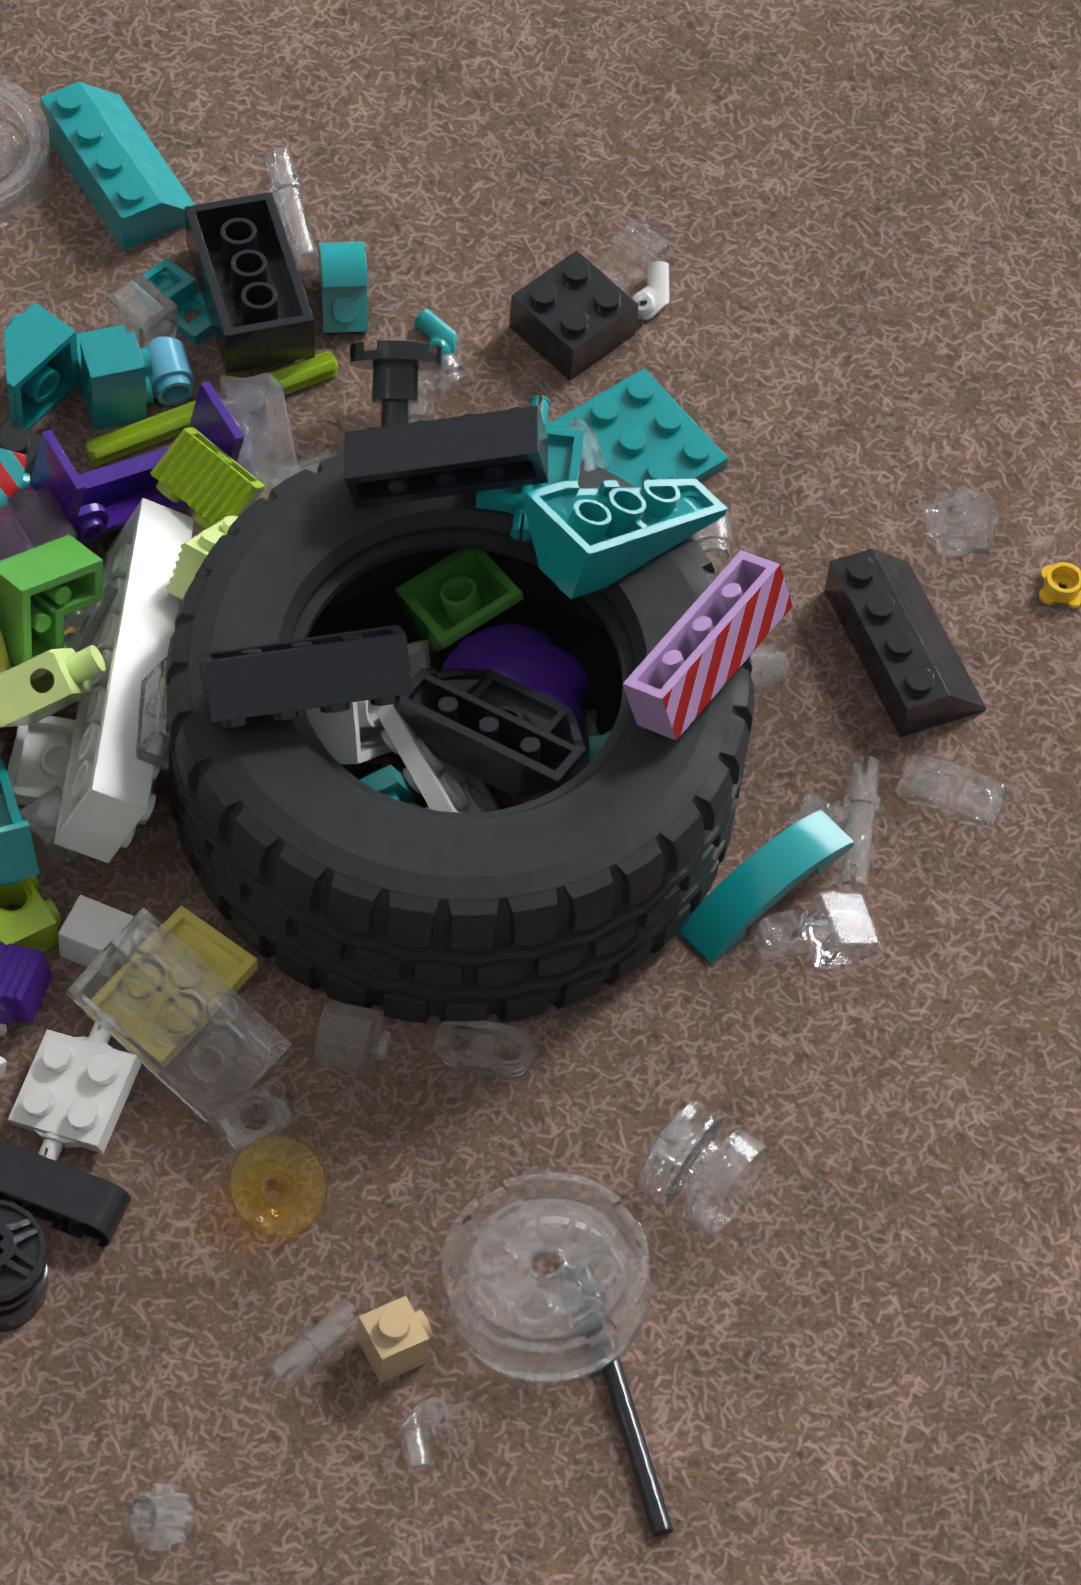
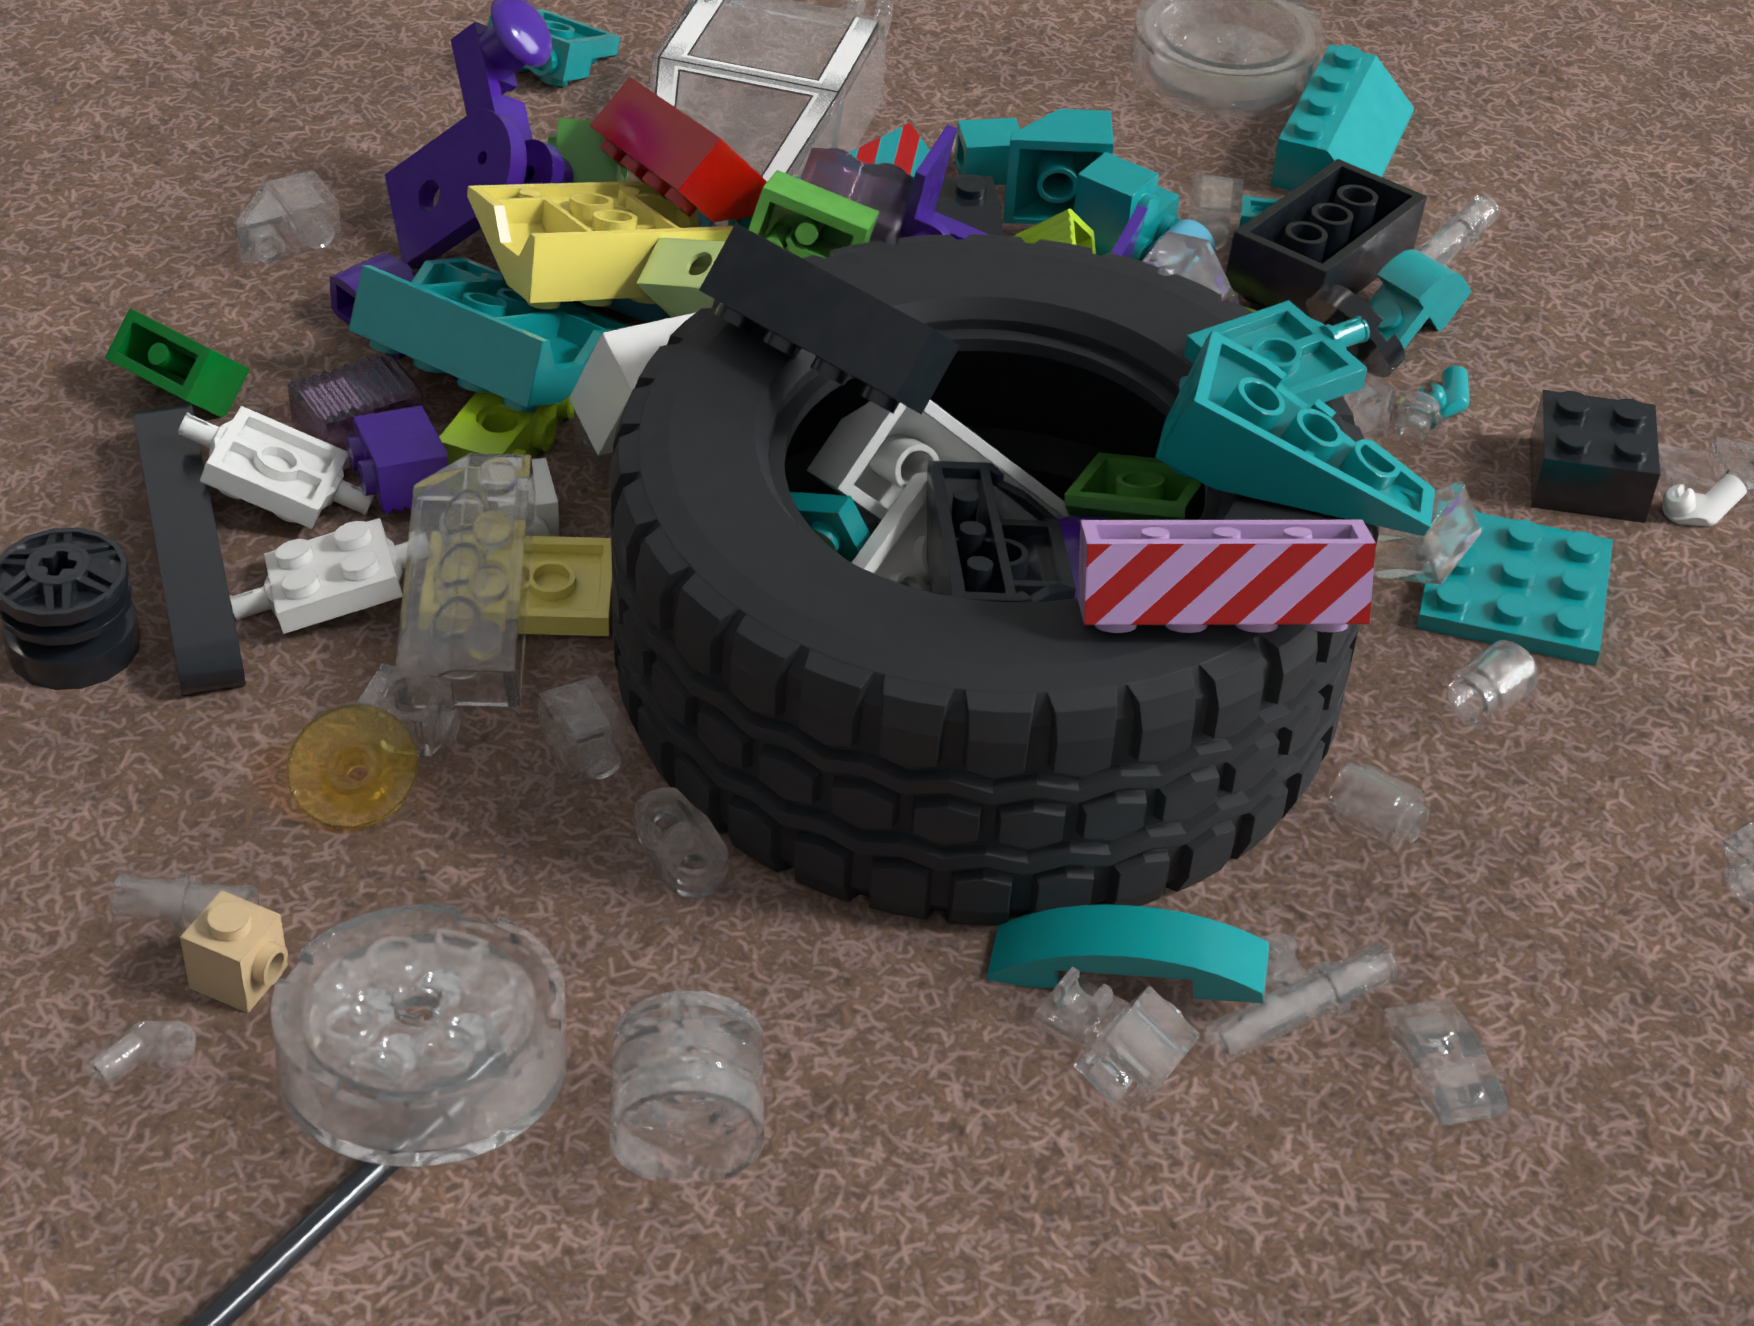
camera: 55 degrees right, 15 degrees down
(446, 457) = (1194, 276): black brick -> none
(900, 641) = (1574, 908): black slope -> none

